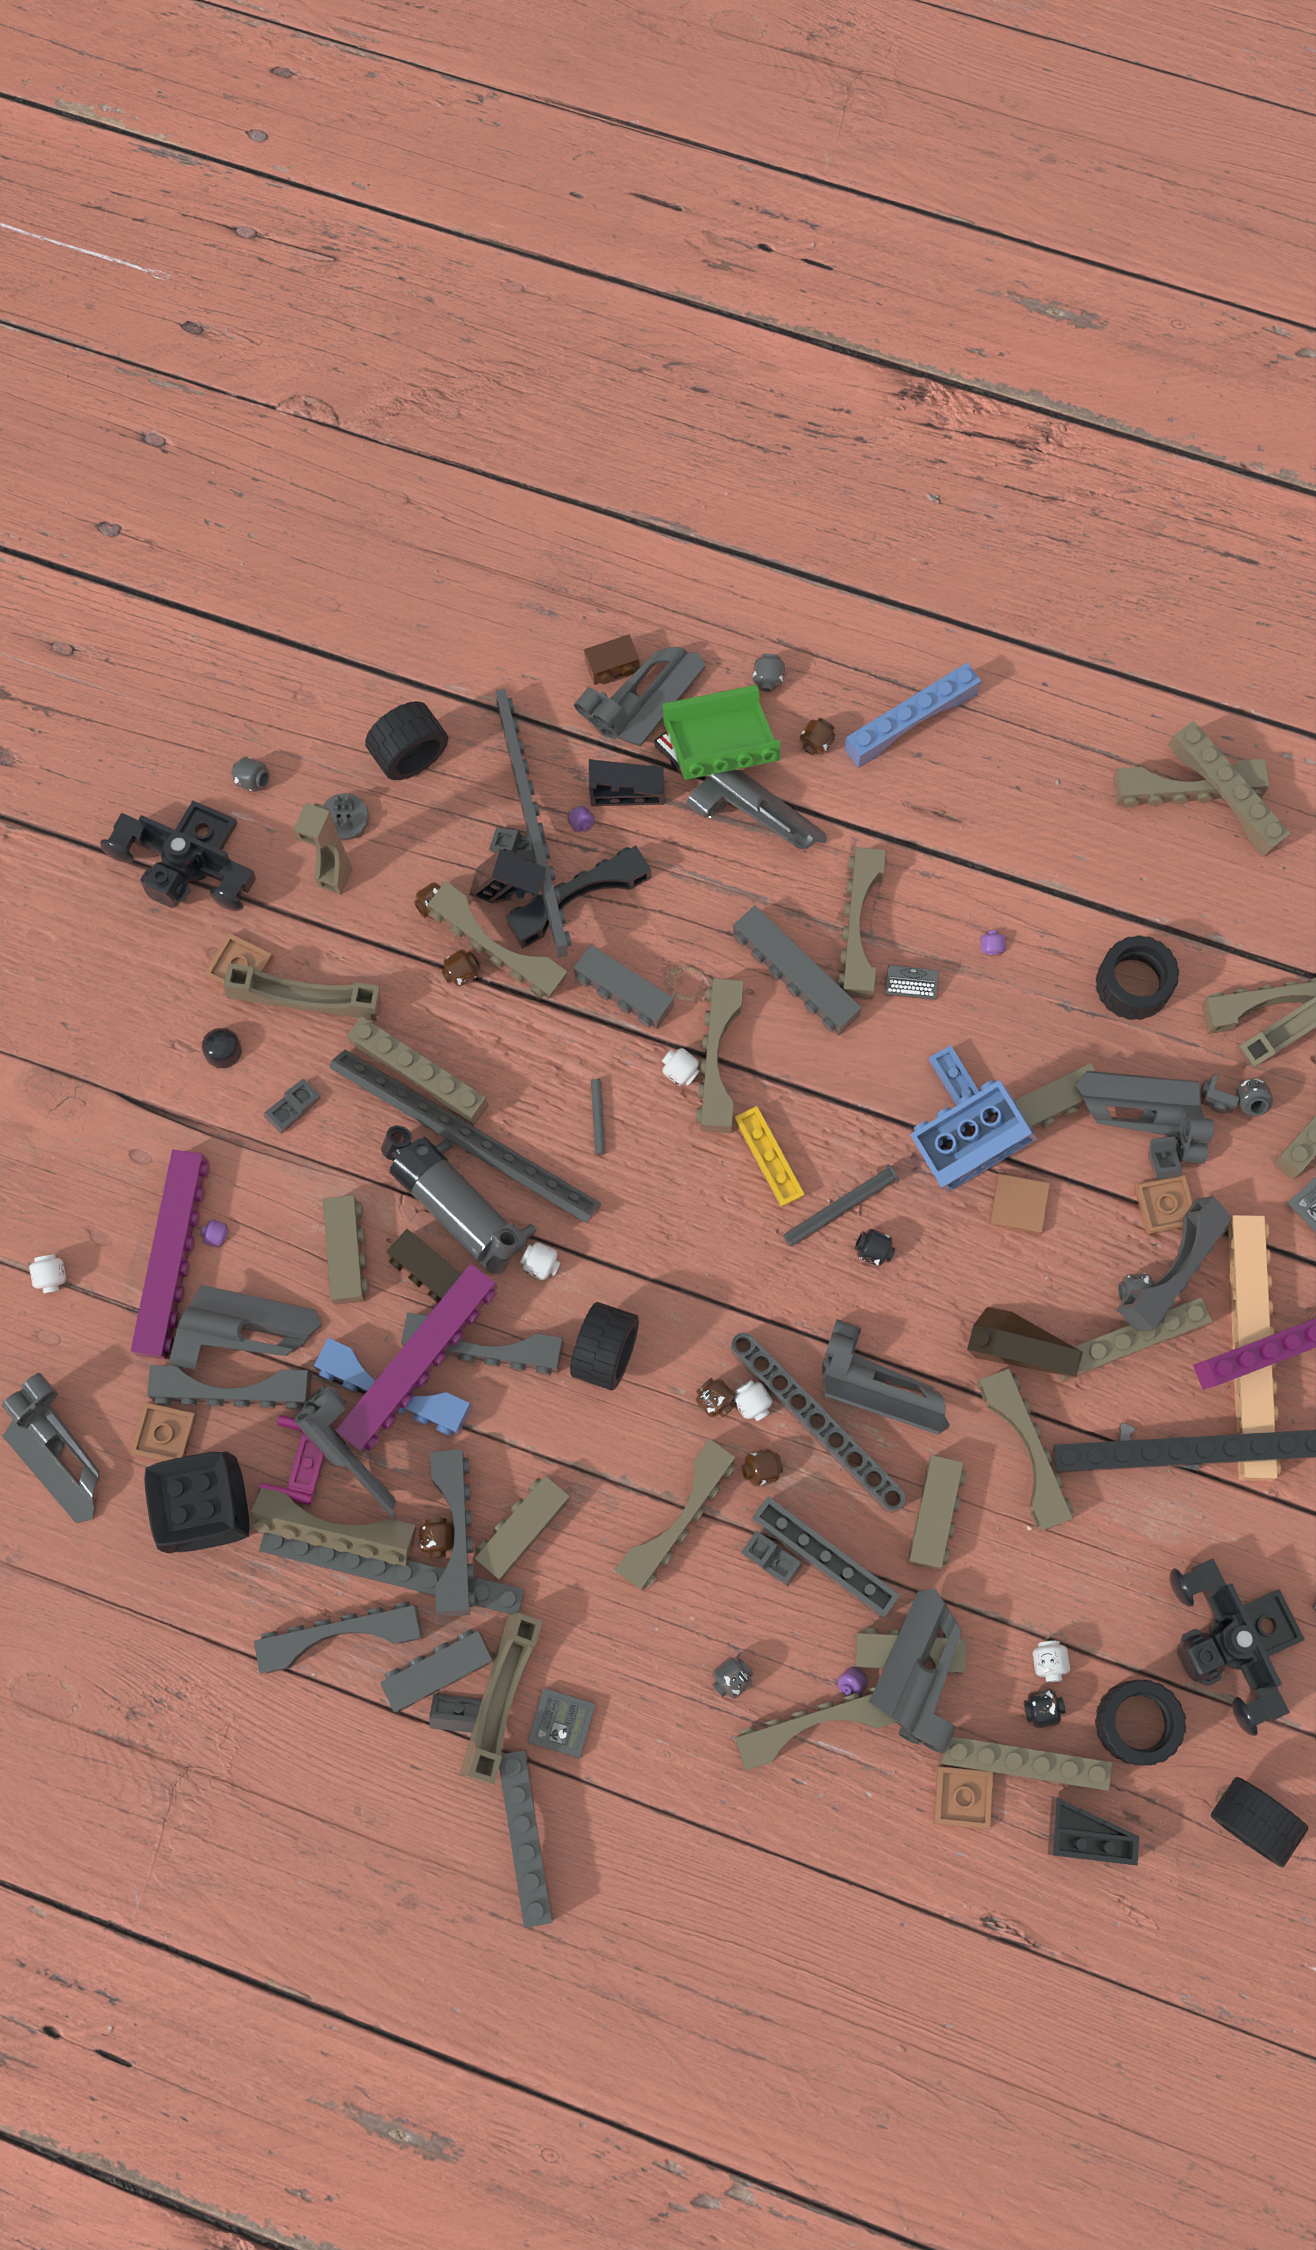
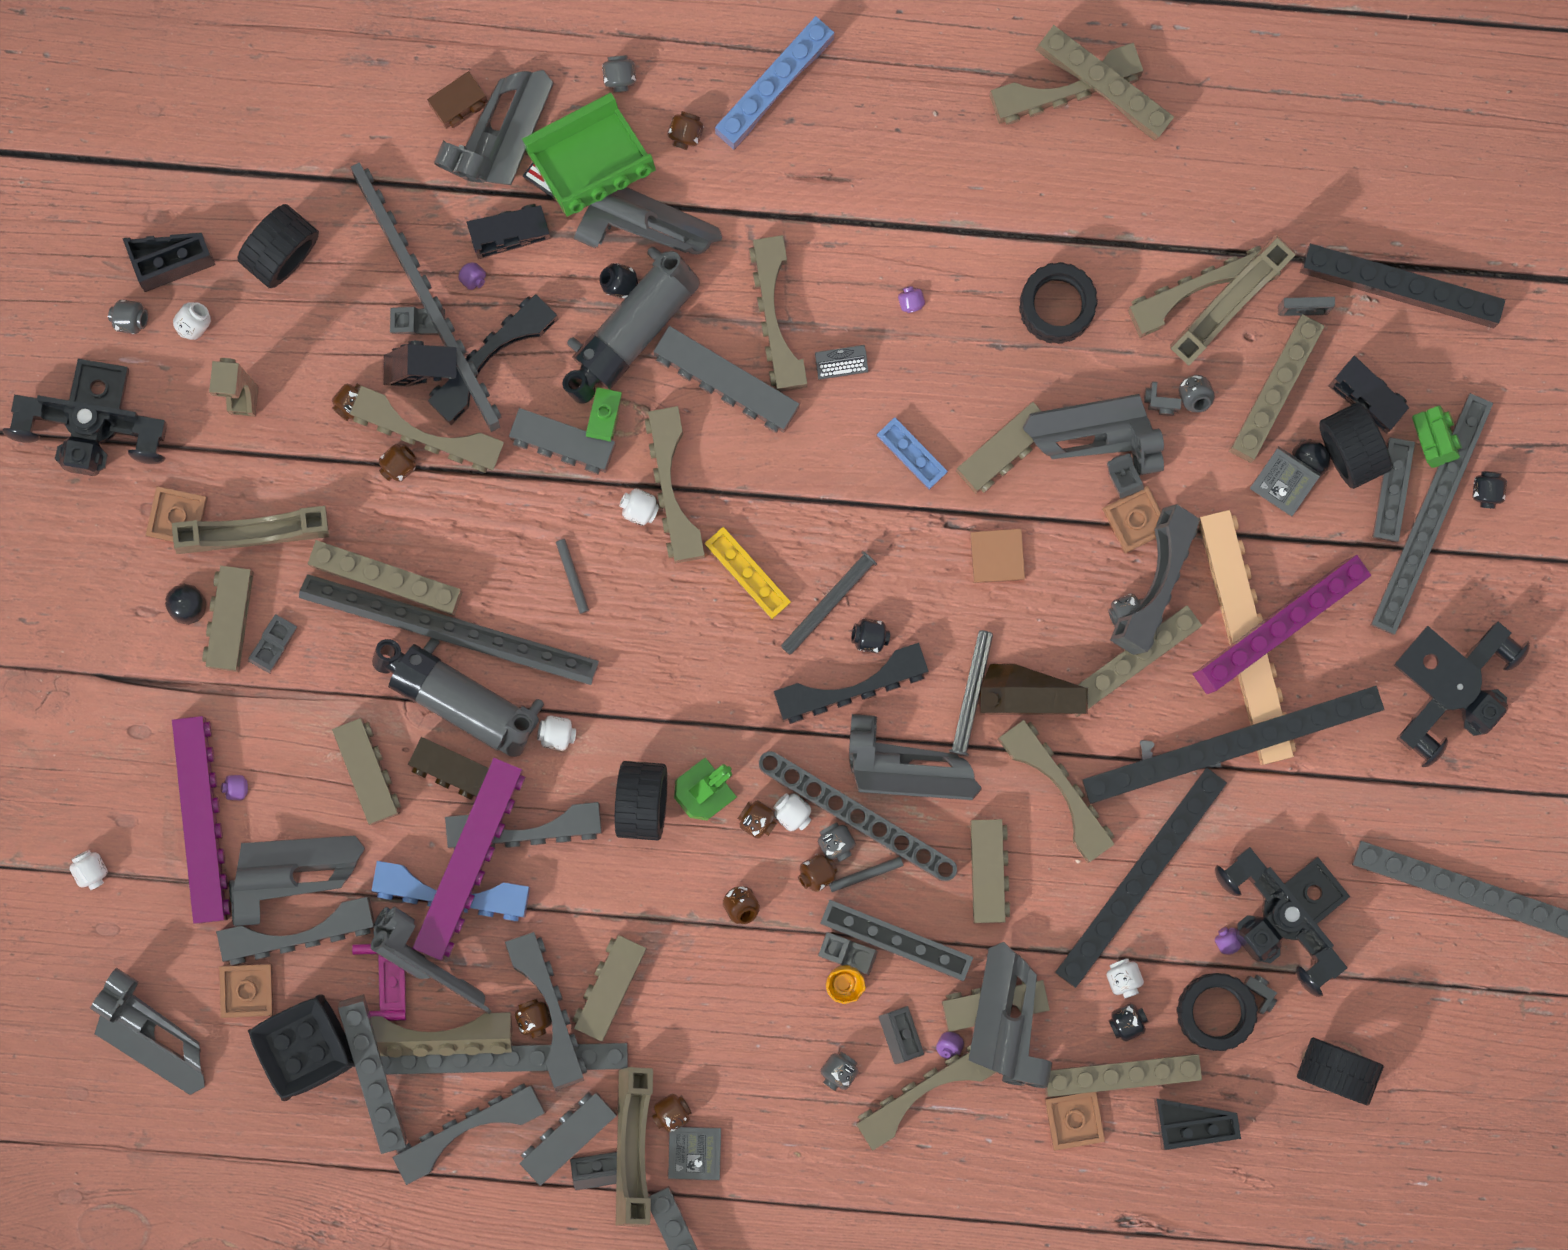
camera: 20 degrees left, 10 degrees up
(257, 1071) = (229, 618): none -> dark tan brick
(257, 1514) = (371, 1074): none -> dark grey arch
(303, 731) = (167, 258): none -> black wedge
(307, 789) = (192, 320): none -> white head
(344, 806) = (232, 324): dark grey plate -> none
(549, 1673) = (671, 1113): none -> reddish brown head
(643, 1560) = (768, 887): dark tan arch -> none
(669, 1355) = (704, 790): none -> bright green piece
(670, 971) = (604, 414): none -> bright green brick
(676, 1479) = (741, 905): none -> reddish brown head
(717, 854) = (618, 280): none -> black head
(718, 896) = (631, 326): none -> dark grey piece
(761, 1589) = (845, 984): none -> light orange hair
(789, 1292) = (799, 699): none -> black arch
(789, 1442) = (836, 842): none -> dark grey head
(805, 1658) = (901, 1035): none -> dark grey slope
(810, 1483) = (866, 874): none -> dark grey bar
(961, 1331) = (972, 693): none -> axle
(985, 1148) = (954, 506): medium blue brick -> none
(1089, 1562) = (1140, 877): none -> black plate
(1166, 1652) = (1227, 941): none -> medium lavender piece
(1191, 1709) = (1259, 986): none -> dark grey bracket

